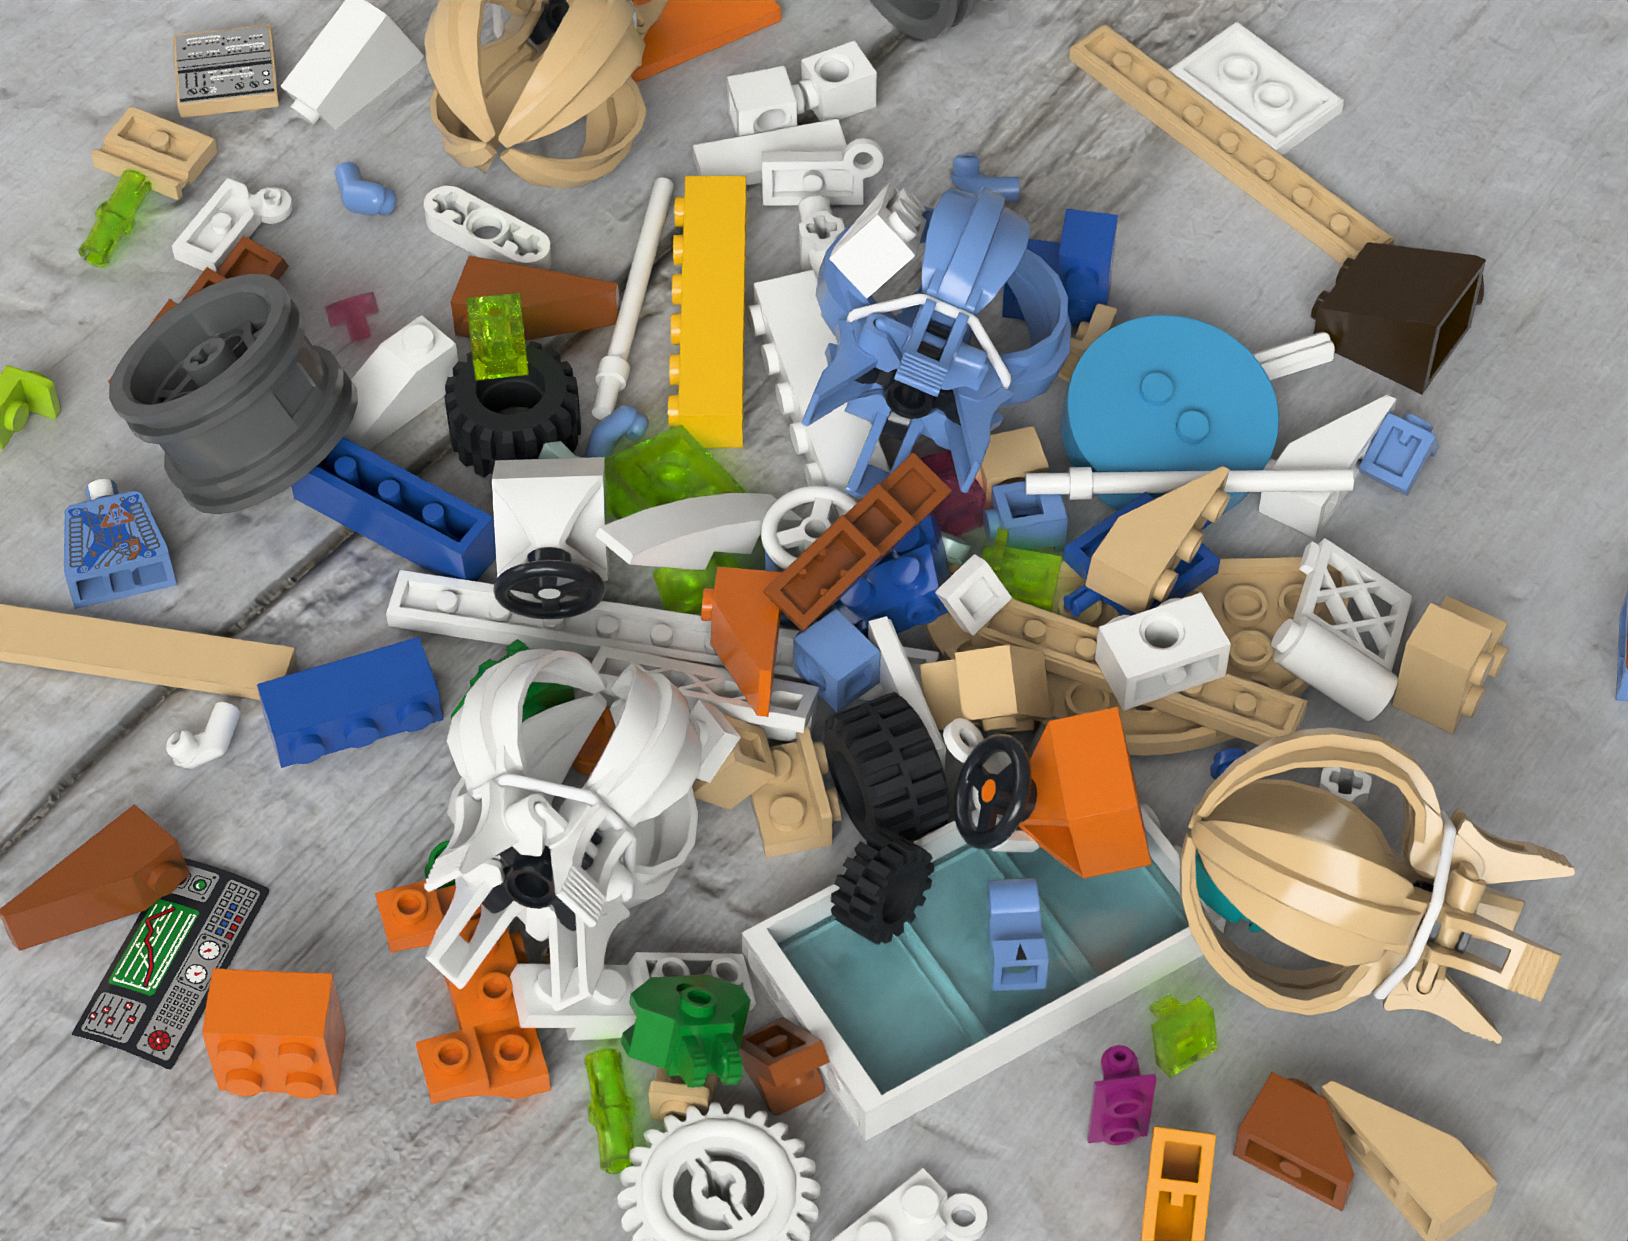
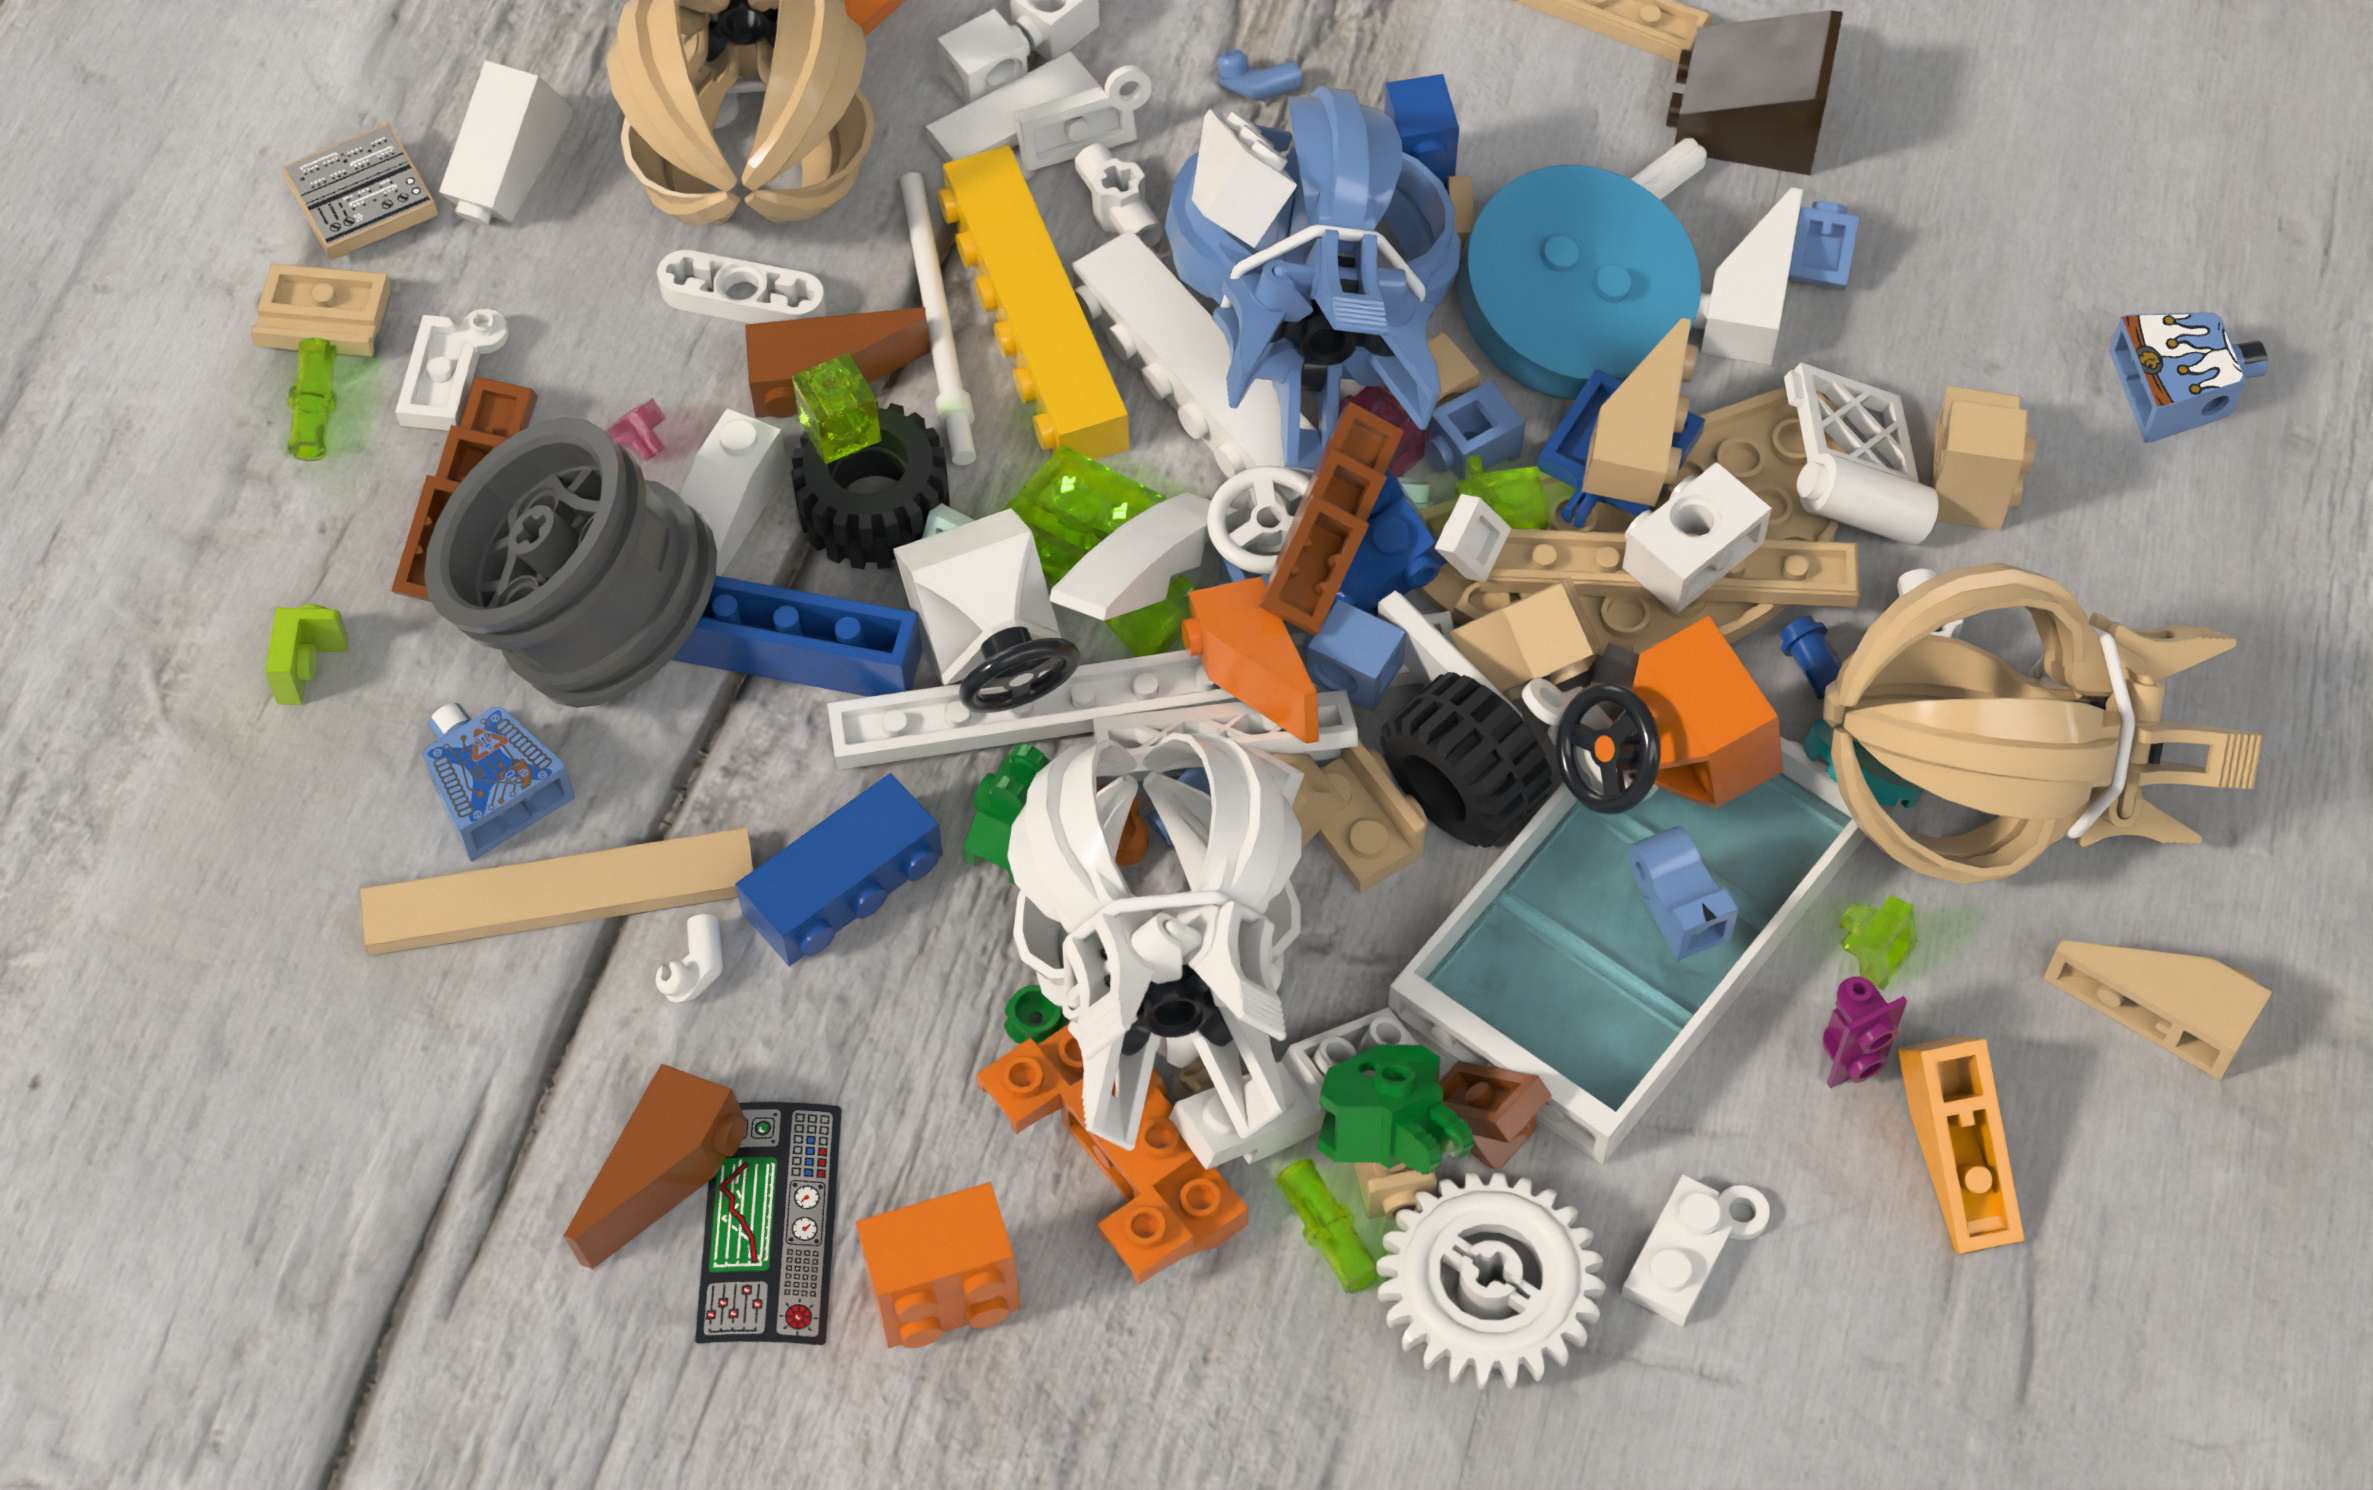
camera: 20 degrees left, 5 degrees up
(361, 195) = (580, 290): medium blue arm -> none
(609, 430) = (989, 463): medium blue arm -> none
(882, 886) = (1523, 887): black tyre -> none
(1082, 482) = (1528, 379): white bar -> none
(1296, 1140) = (2049, 1014): dark orange slope -> none

